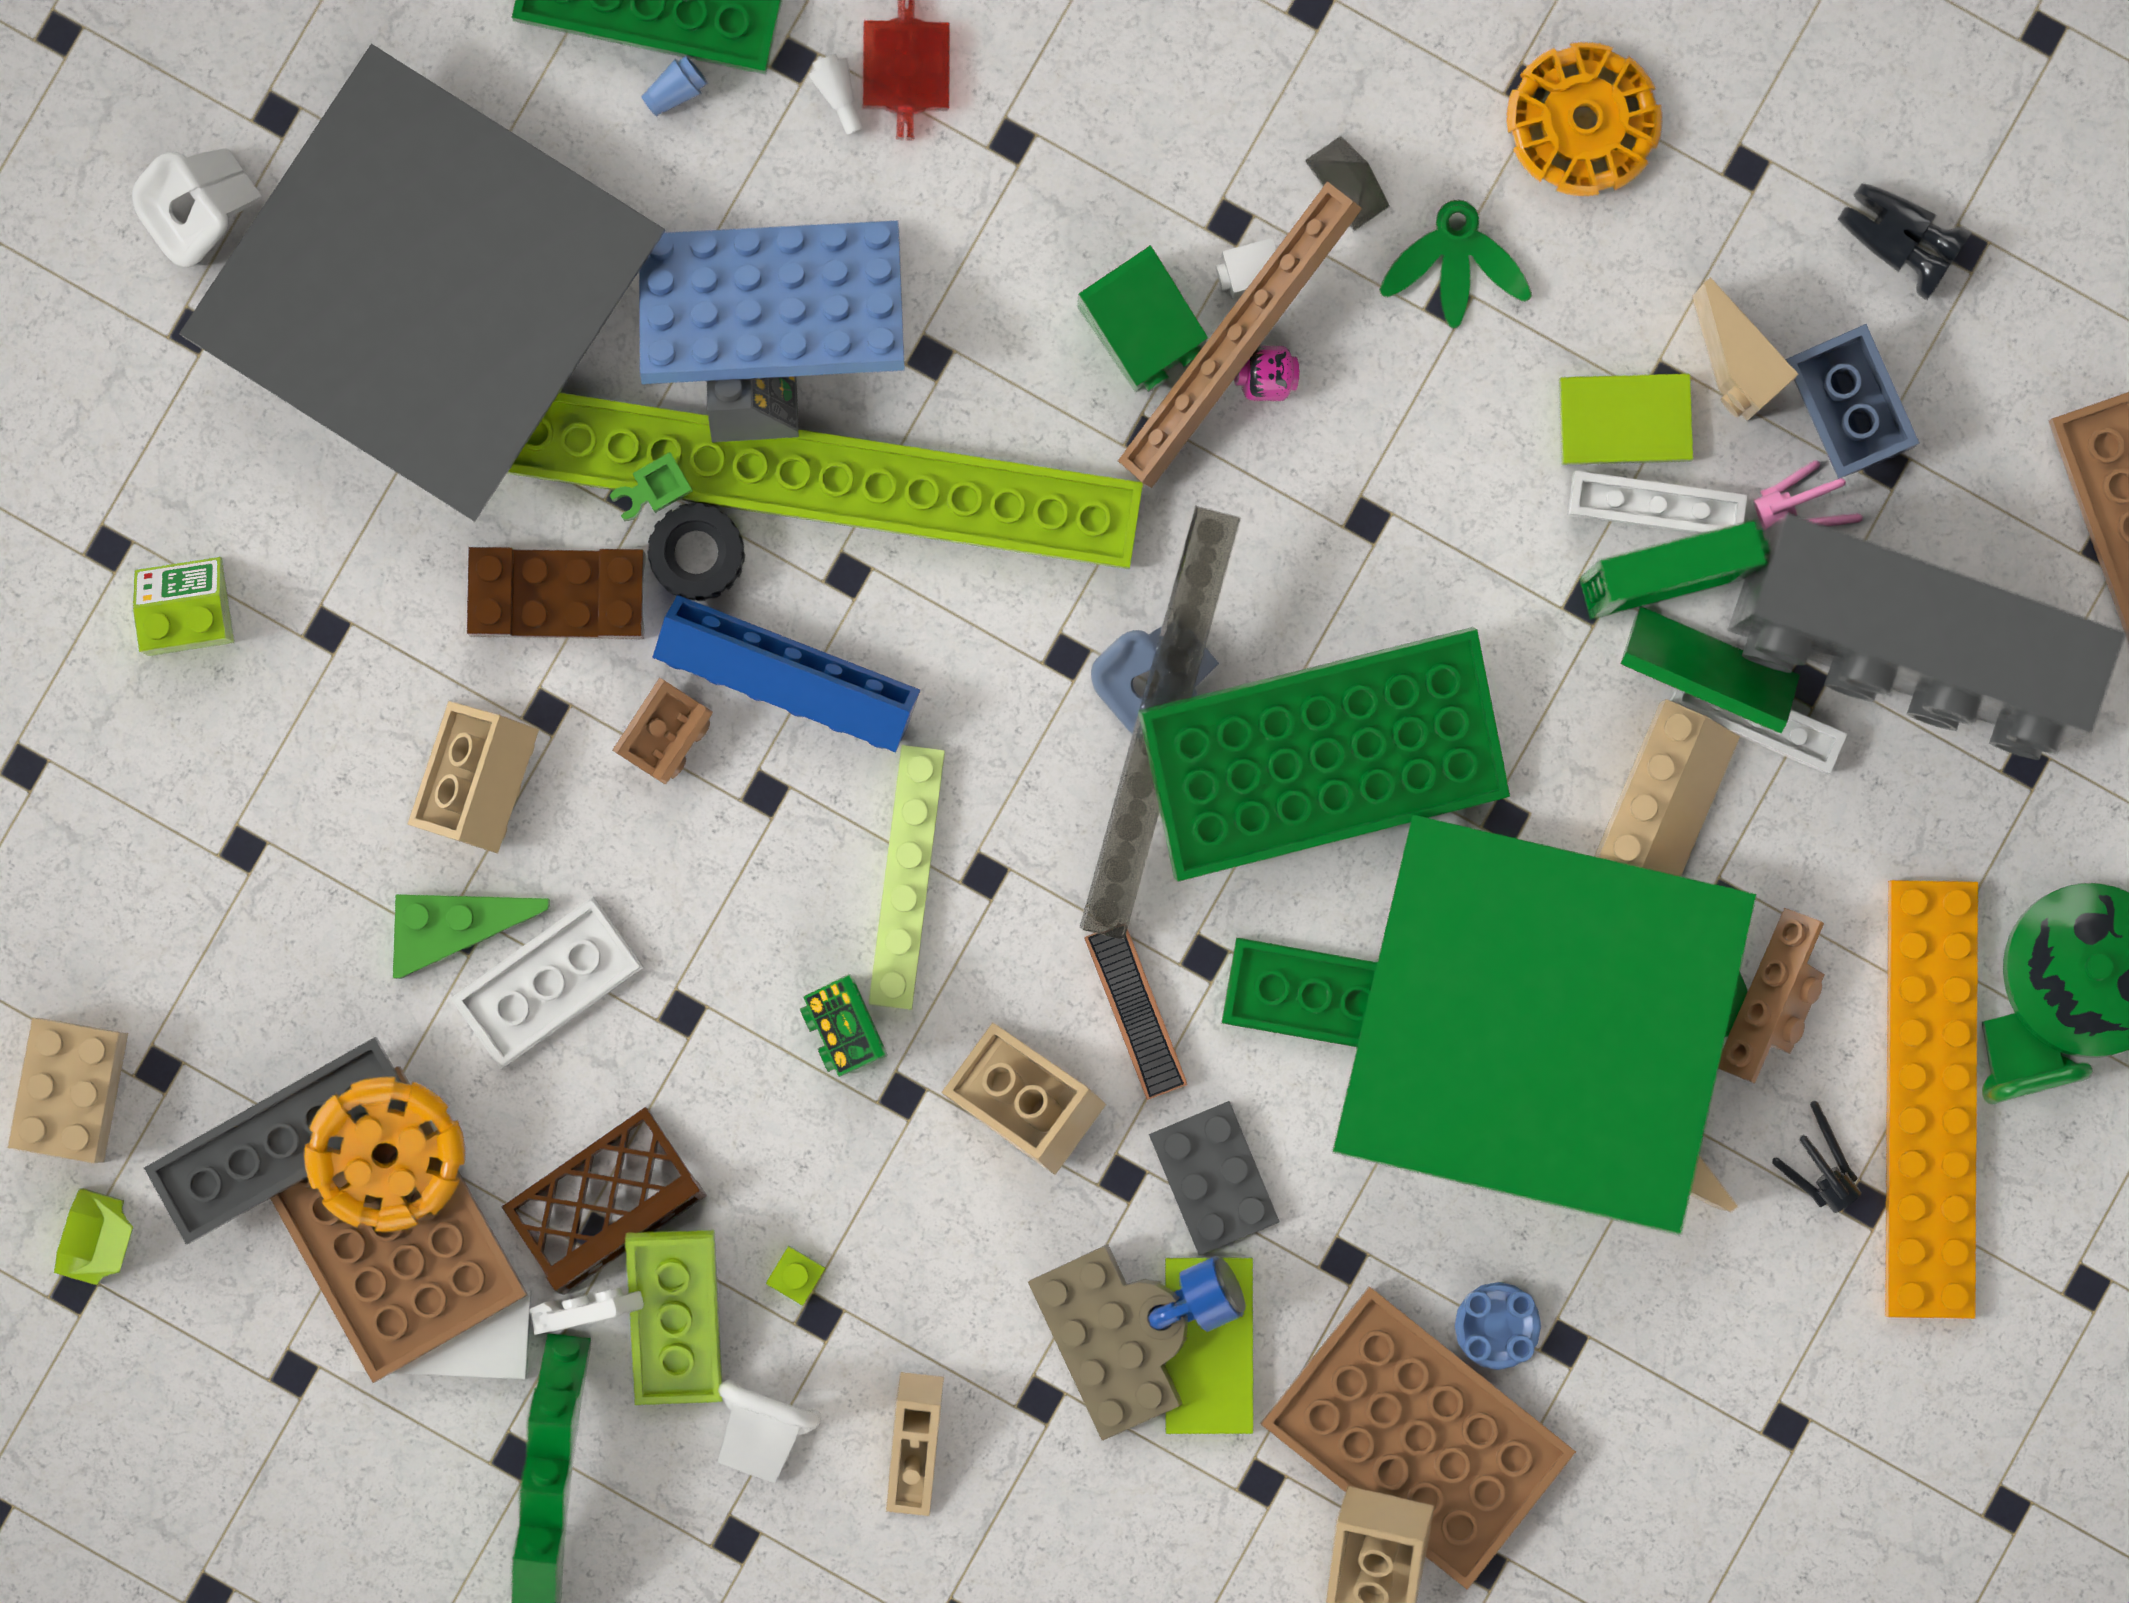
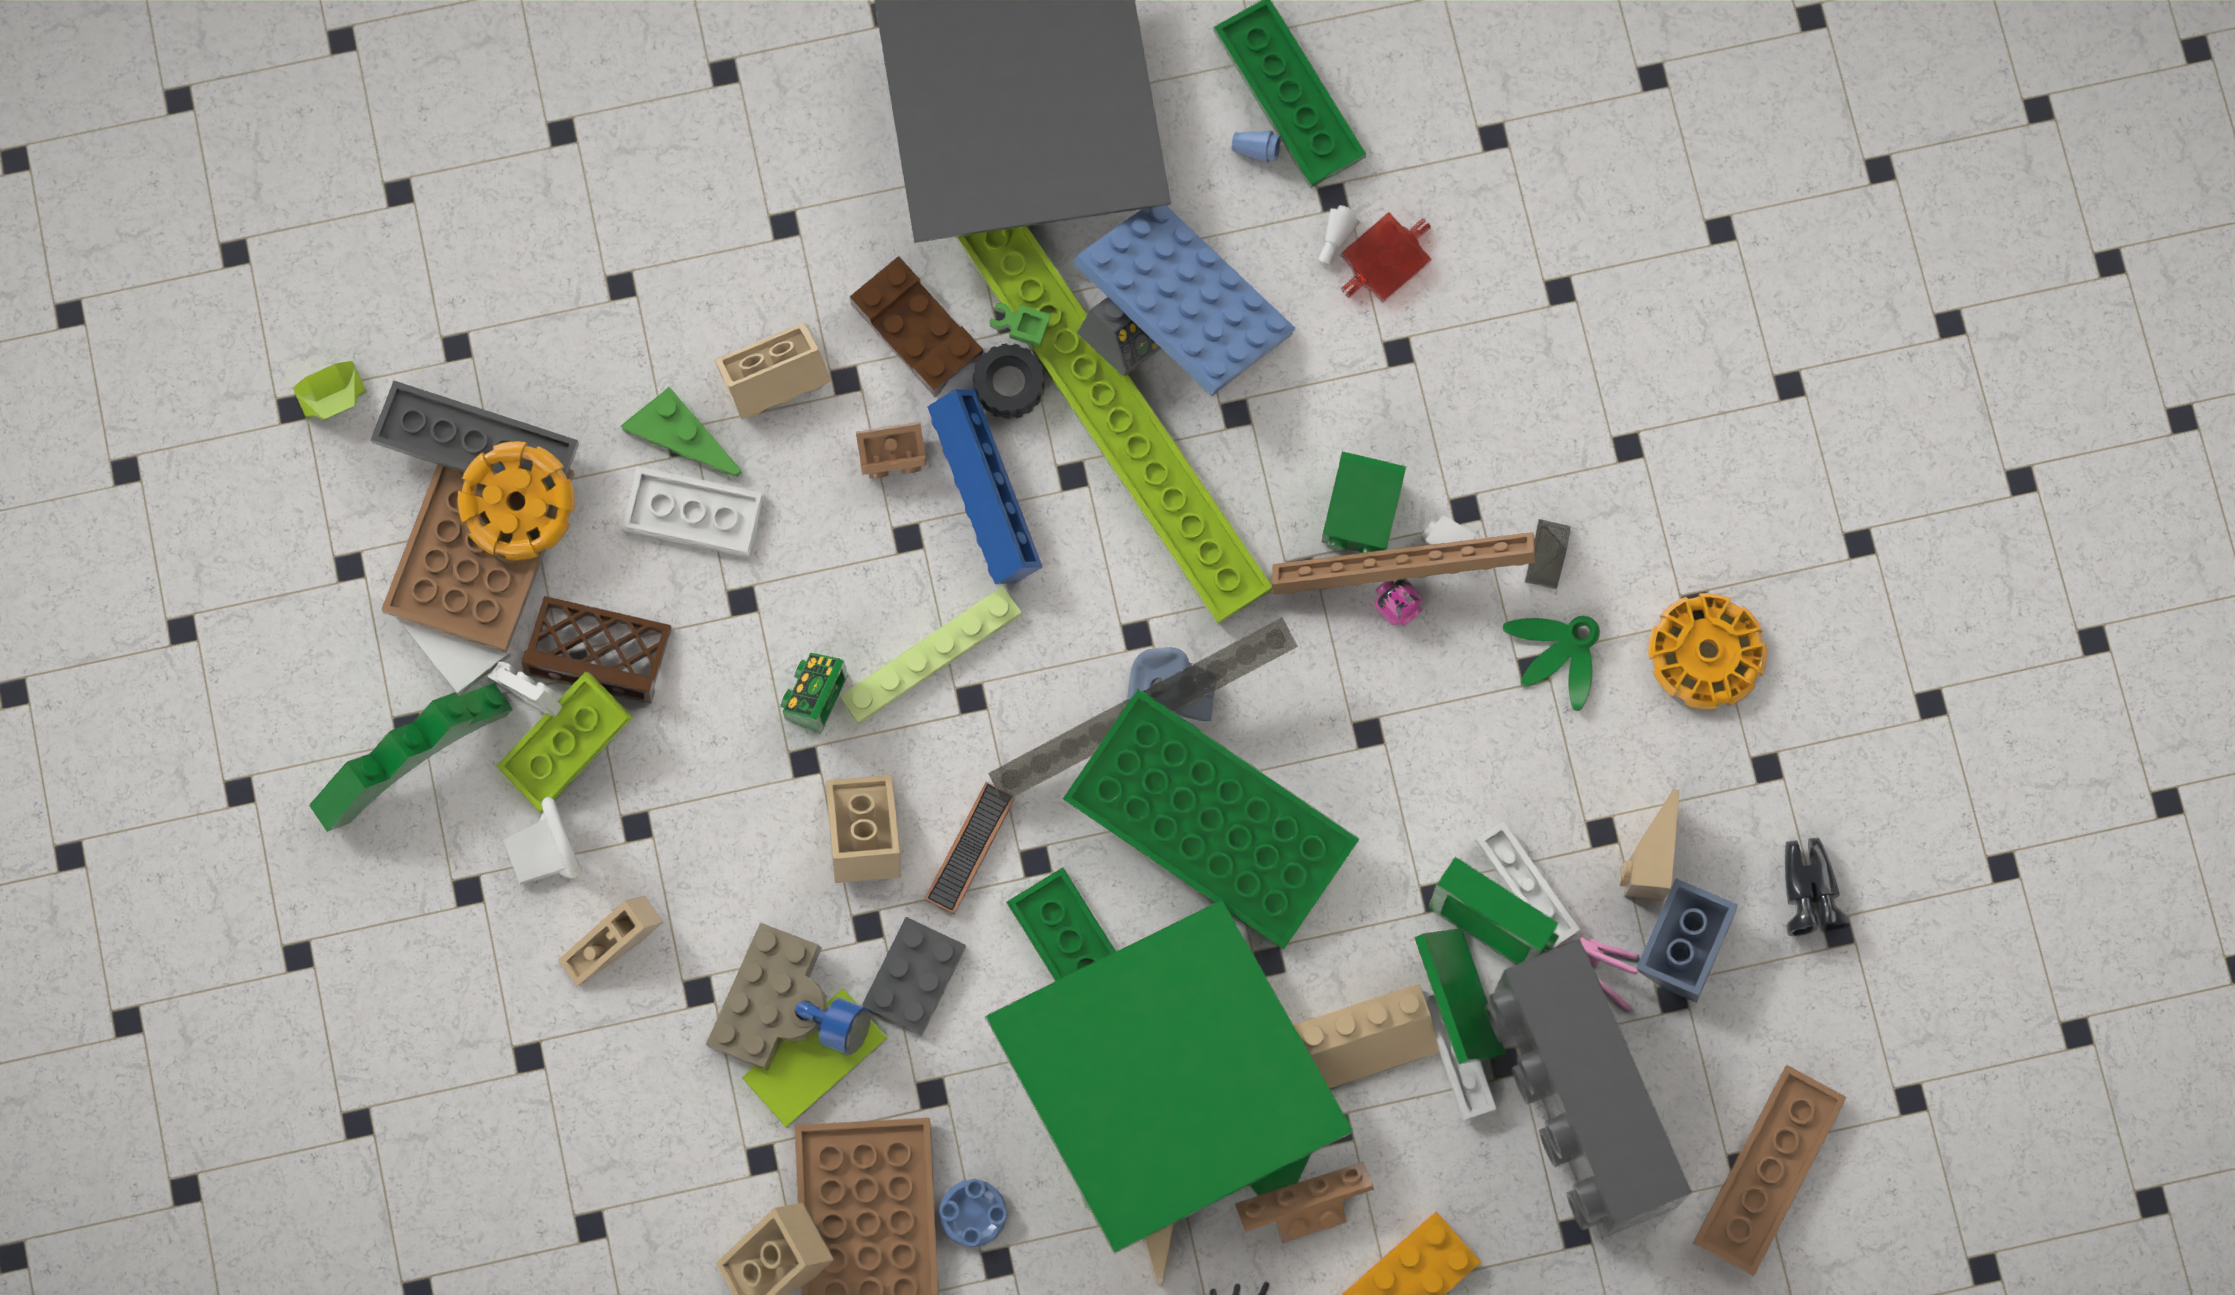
camera: 55 degrees right, 10 degrees down
(67, 1090) = (401, 306): tan brick -> none
(181, 607) = (725, 137): lime slope -> none
(795, 1275) = (648, 791): lime plate -> none
(1626, 419) = (1560, 825): lime tile -> none

